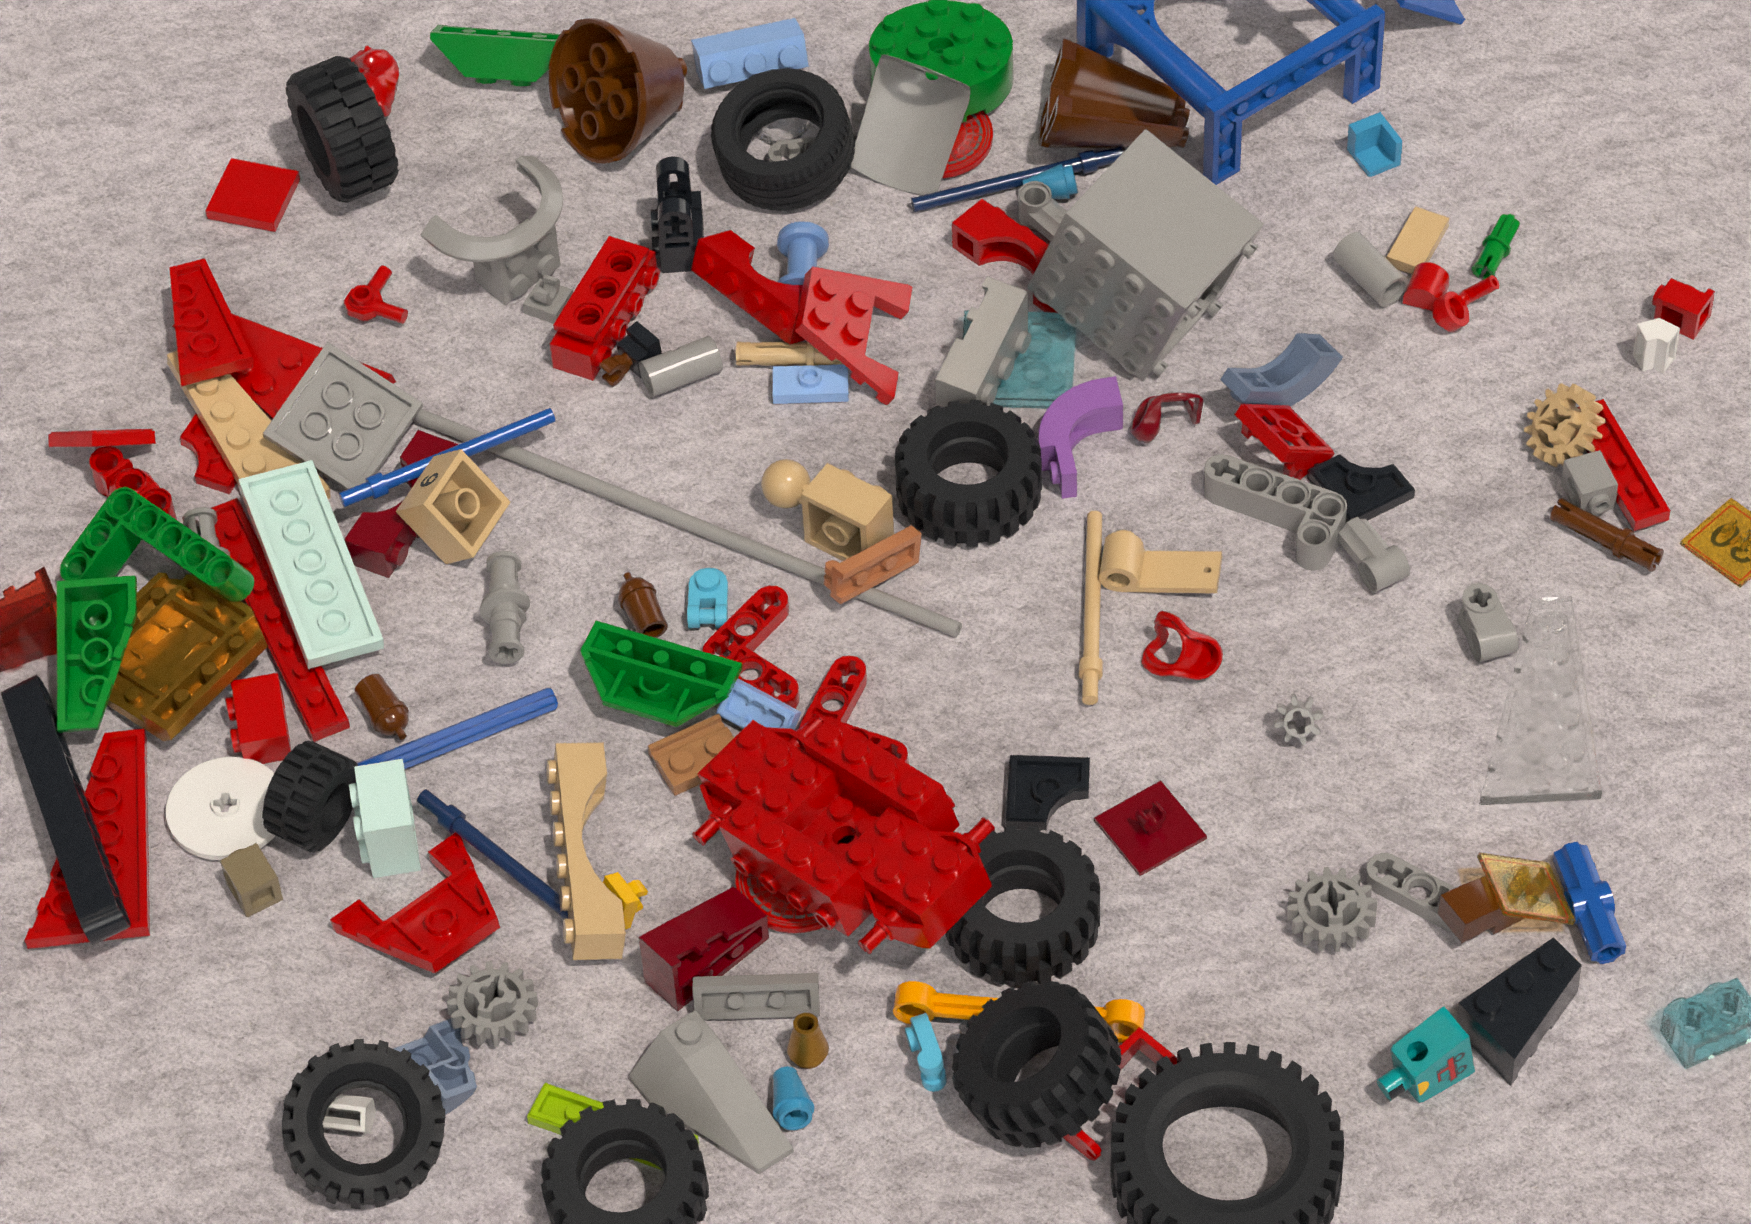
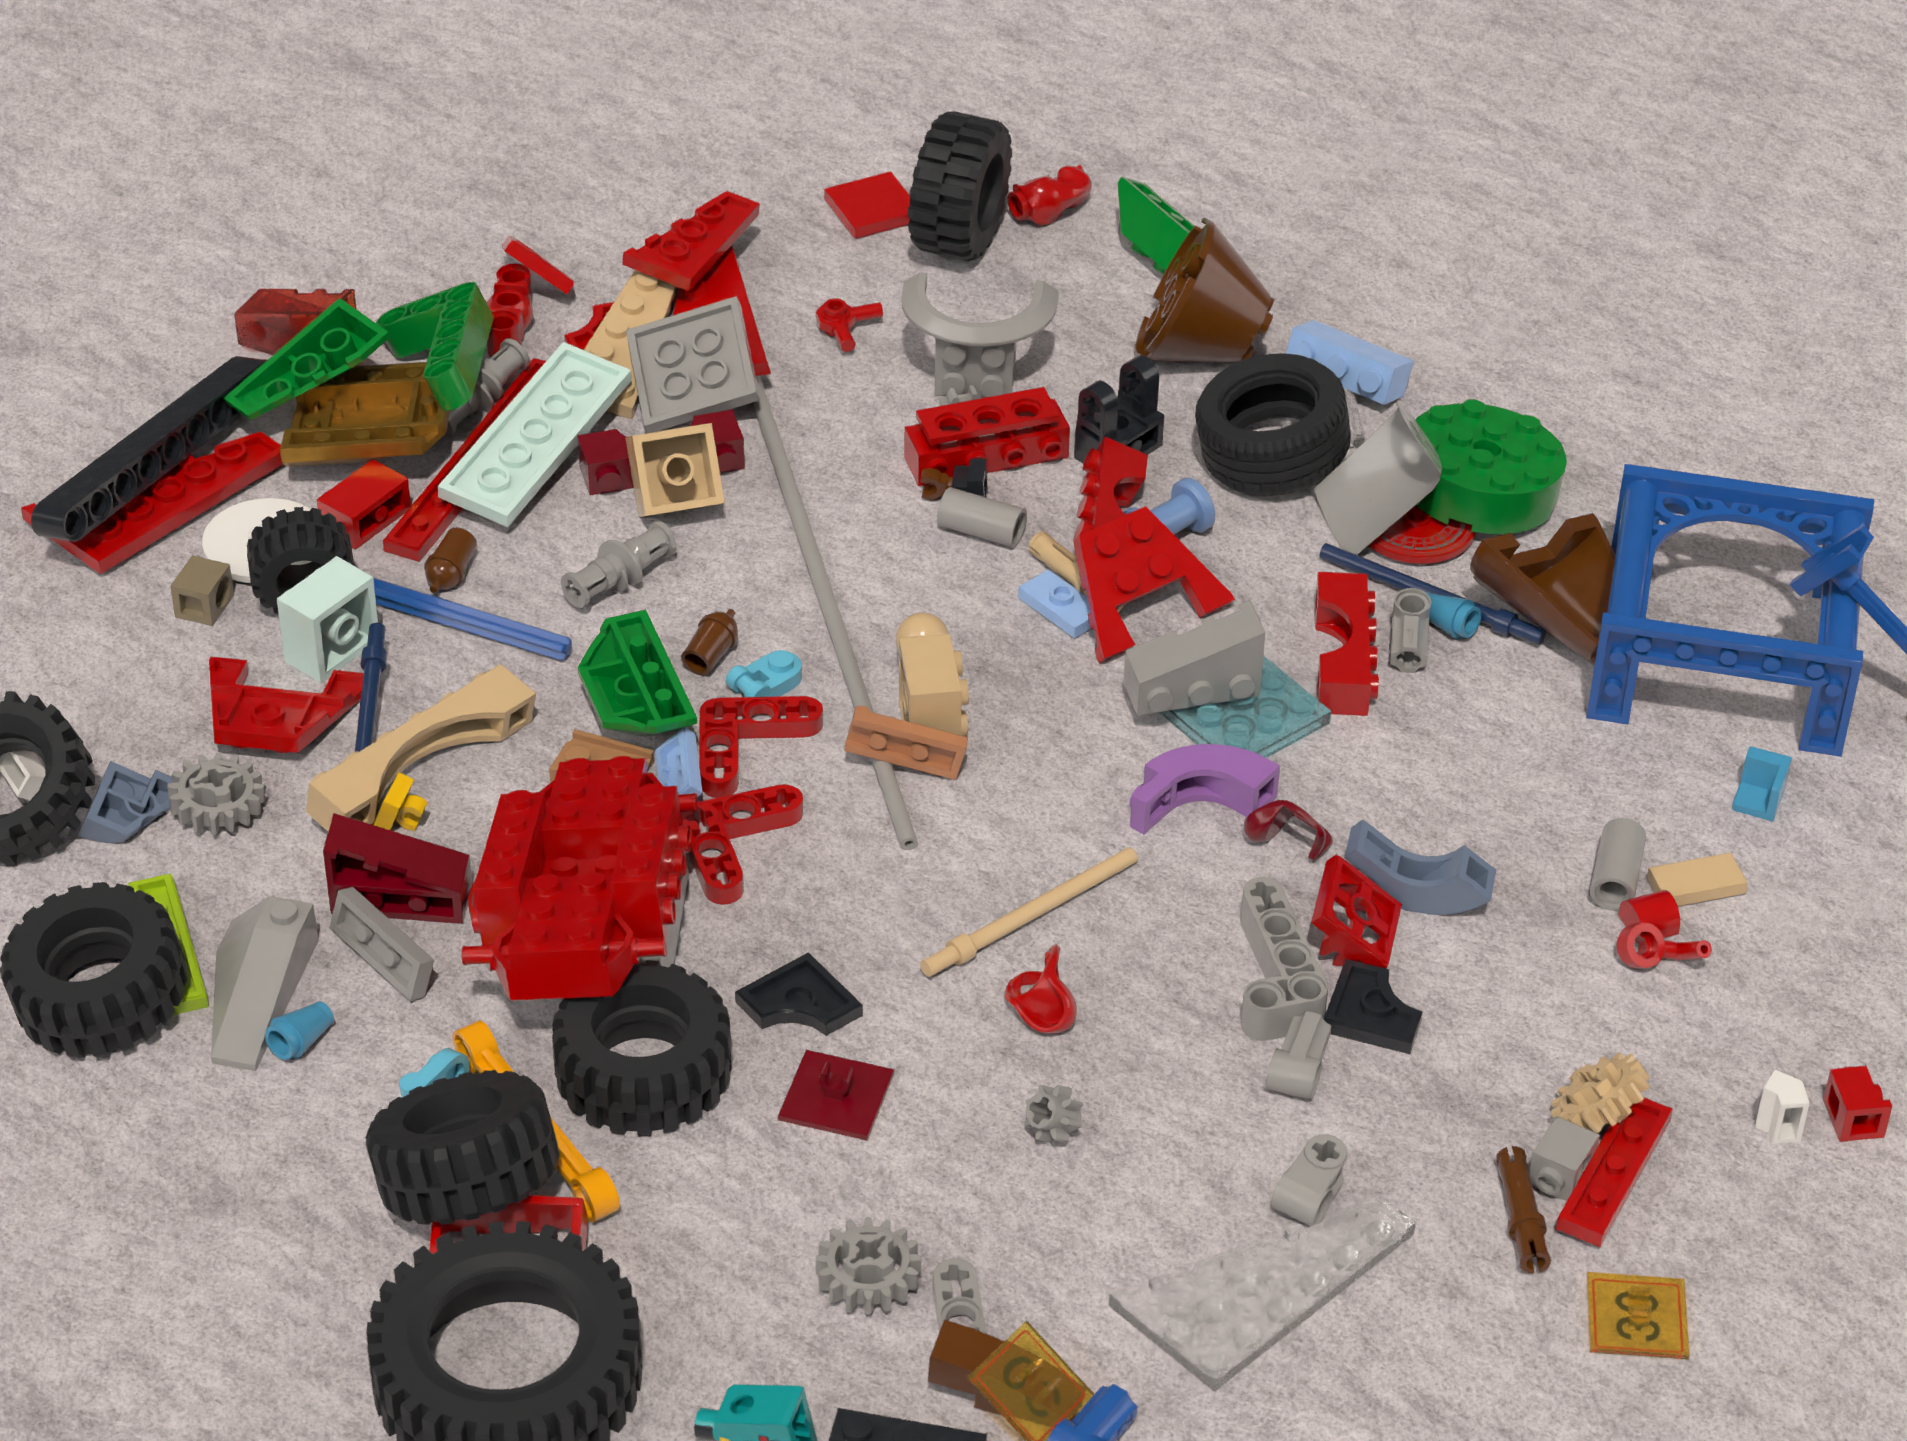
camera: 45 degrees right, 10 degrees down
(379, 484) = (650, 419): blue bar -> none
(807, 1042) = (364, 1002): pearl gold cone -> none
(968, 511) = (1063, 776): black tyre -> none
(1132, 569) = (1103, 913): tan door -> none
(1144, 255) = (1396, 680): light grey piece -> none
(1496, 245) = (1757, 933): green axle -> none

